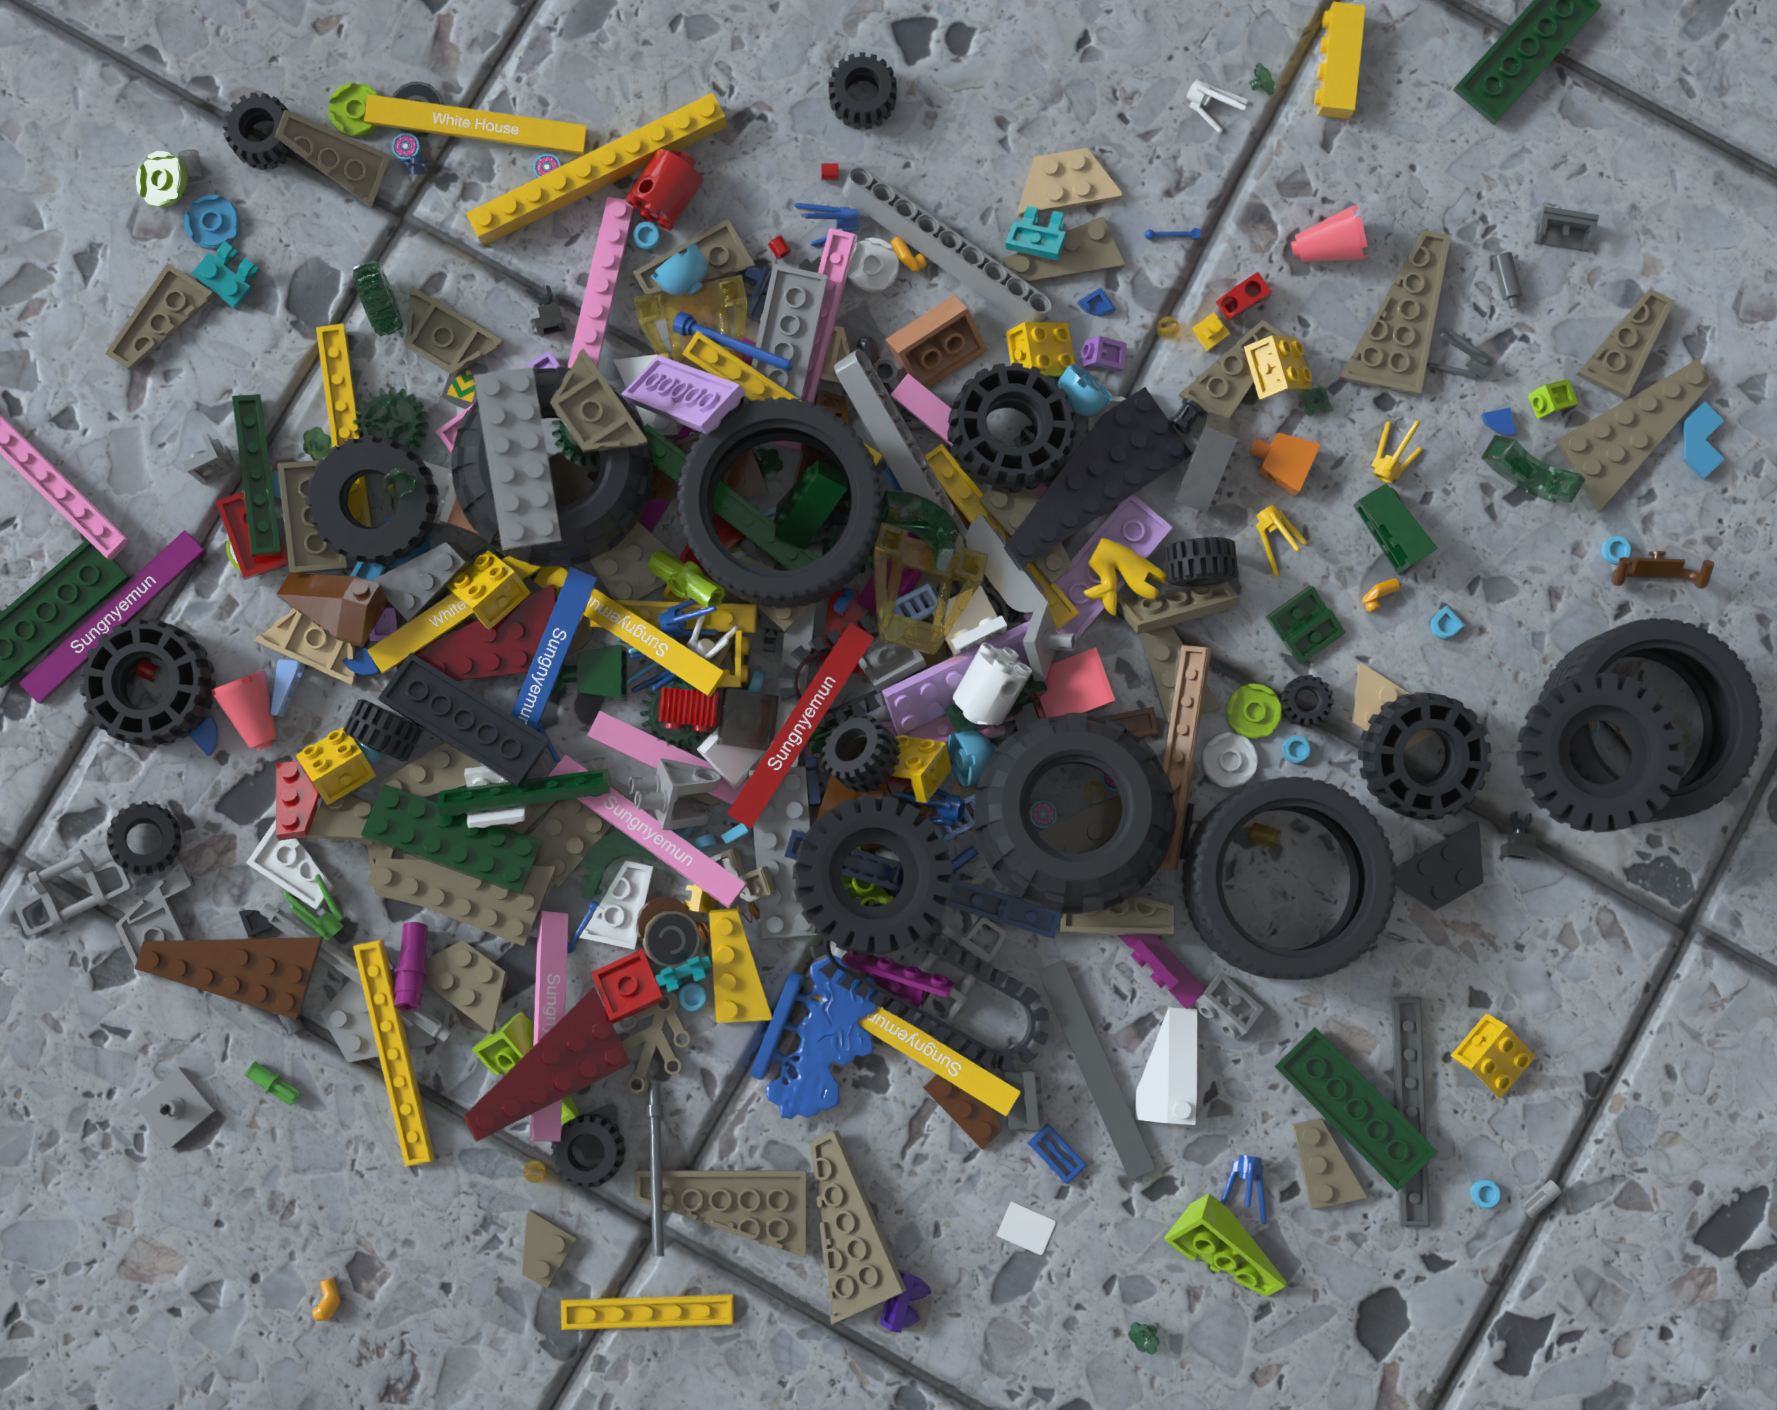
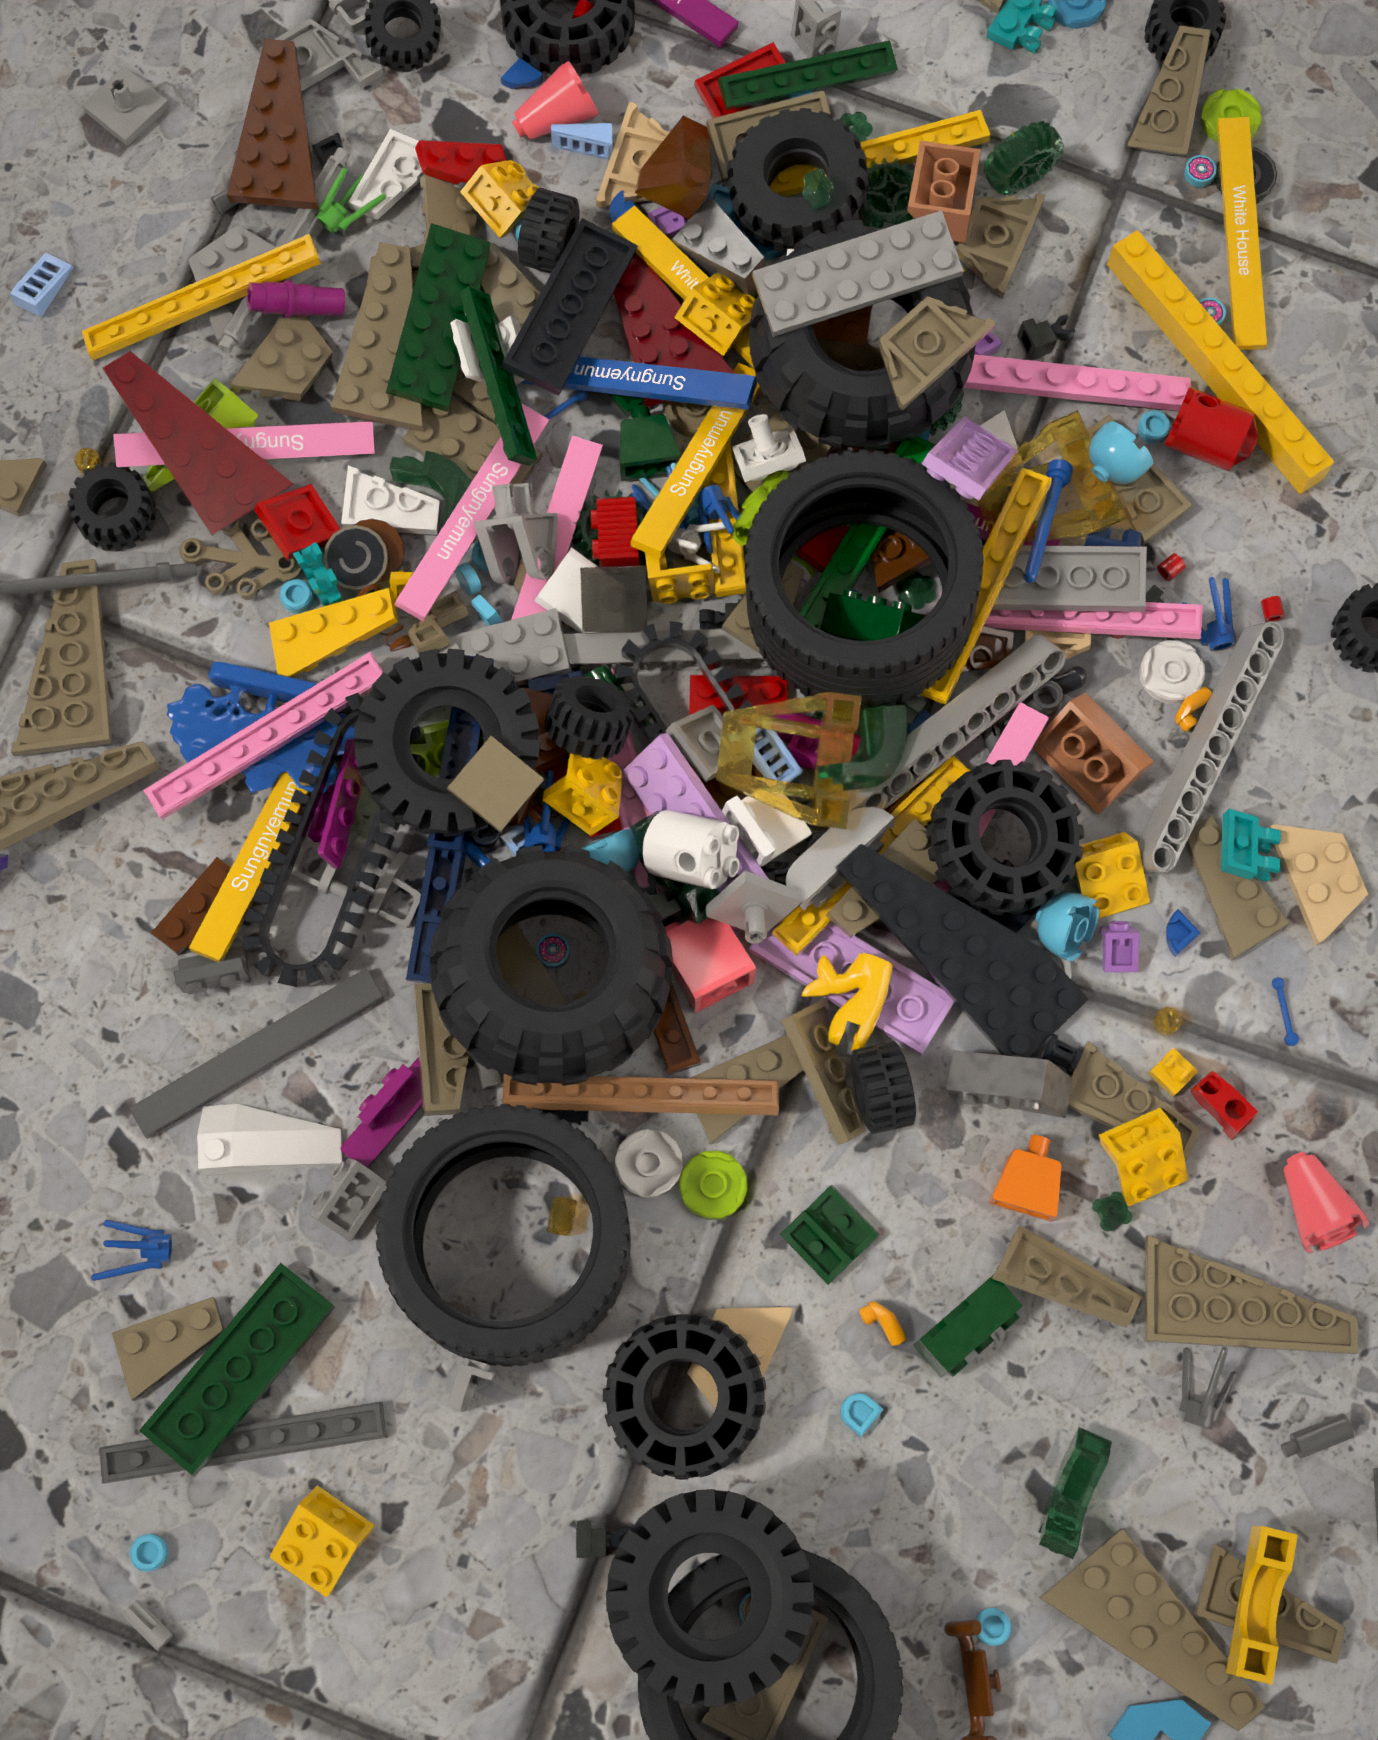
camera: 85 degrees right, 10 degrees down
(272, 1083) = (159, 190): bright green axle -> none
(364, 1197) = (44, 297): none -> light blue slope
(397, 372) = (945, 182): none -> nougat slope
(418, 165) = (1182, 183): dark blue plate -> none
(592, 908) = (338, 462): blue hinge -> none
(635, 567) = (767, 450): none -> white plate
(756, 681) = (661, 609): medium azure tile -> none
(800, 725) = (615, 649): red tile -> none
(826, 1033) = (262, 737): none -> bright pink tile
(844, 601) = (763, 686): blue tile -> none
(919, 837) = (495, 784): none -> dark tan tile
(1026, 1228) = (65, 998): white sticker -> none
(1040, 1136) = (163, 1030): blue tile -> none
(1216, 1236) = (71, 1217): lime wedge -> none
(1272, 520) = (951, 1175): yellow plant -> none
(1296, 749) = (673, 1243): medium azure tile -> none
(1322, 694) = (751, 1231): black tyre -> none
(1364, 451) = (1060, 1277): none -> dark tan wing
(1388, 468) = (1044, 1311): yellow plant -> none
(1444, 869) = (548, 1447): black wing -> none
(1500, 421) = (1131, 1450): blue tile -> none
(1552, 398) = (1175, 1515): lime bracket -> none
(1656, 357) = (1254, 1633): none -> yellow arch

